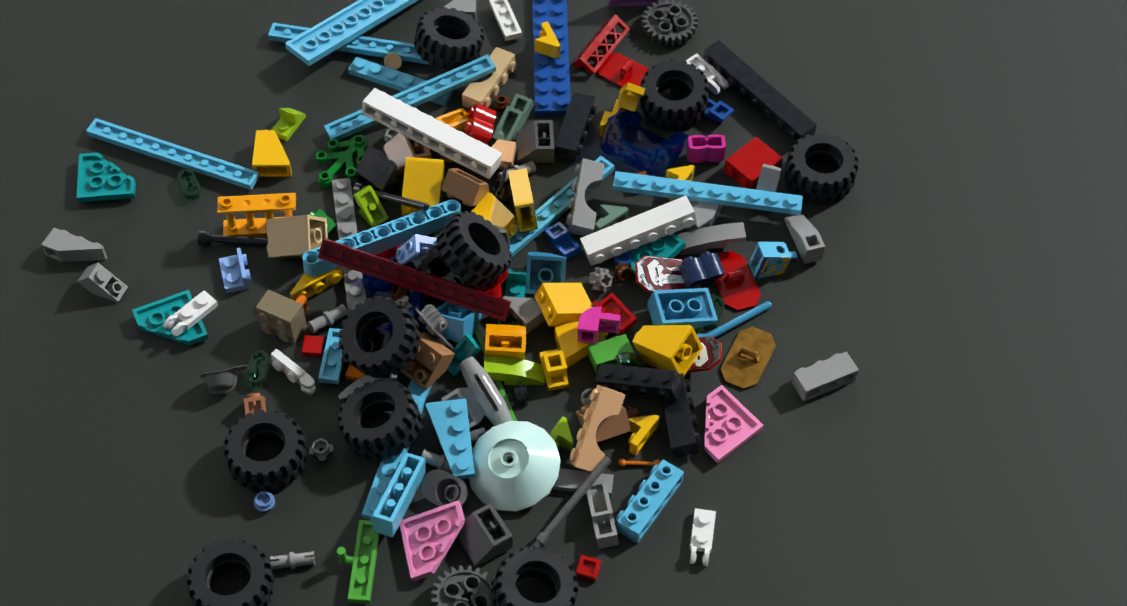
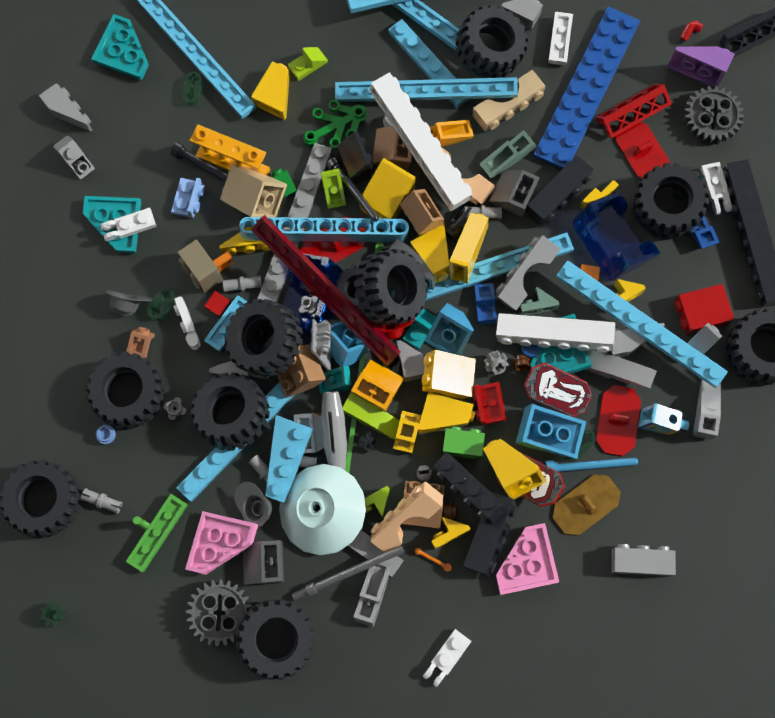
camera: 30 degrees right, 20 degrees up
(393, 61) = (432, 39): tan piece -> none
(398, 495) = (211, 489): medium azure brick -> none
(415, 248) = (331, 263): light blue bracket -> none
(480, 123) = (475, 146): red brick -> none
(501, 102) = (508, 134): reddish brown plate -> none
(547, 43) = (582, 89): yellow slope -> none
(588, 568) = (335, 635): red tile -> none
(594, 321) = (460, 409): dark pink brick -> none
(629, 96) = (624, 186): yellow slope -> none
(629, 359) = (474, 462): clear green beam -> none
(649, 501) = (420, 602): medium azure brick -> none
(701, 269) = (591, 399): dark blue brick -> none
(706, 148) = (671, 274): dark pink brick -> none

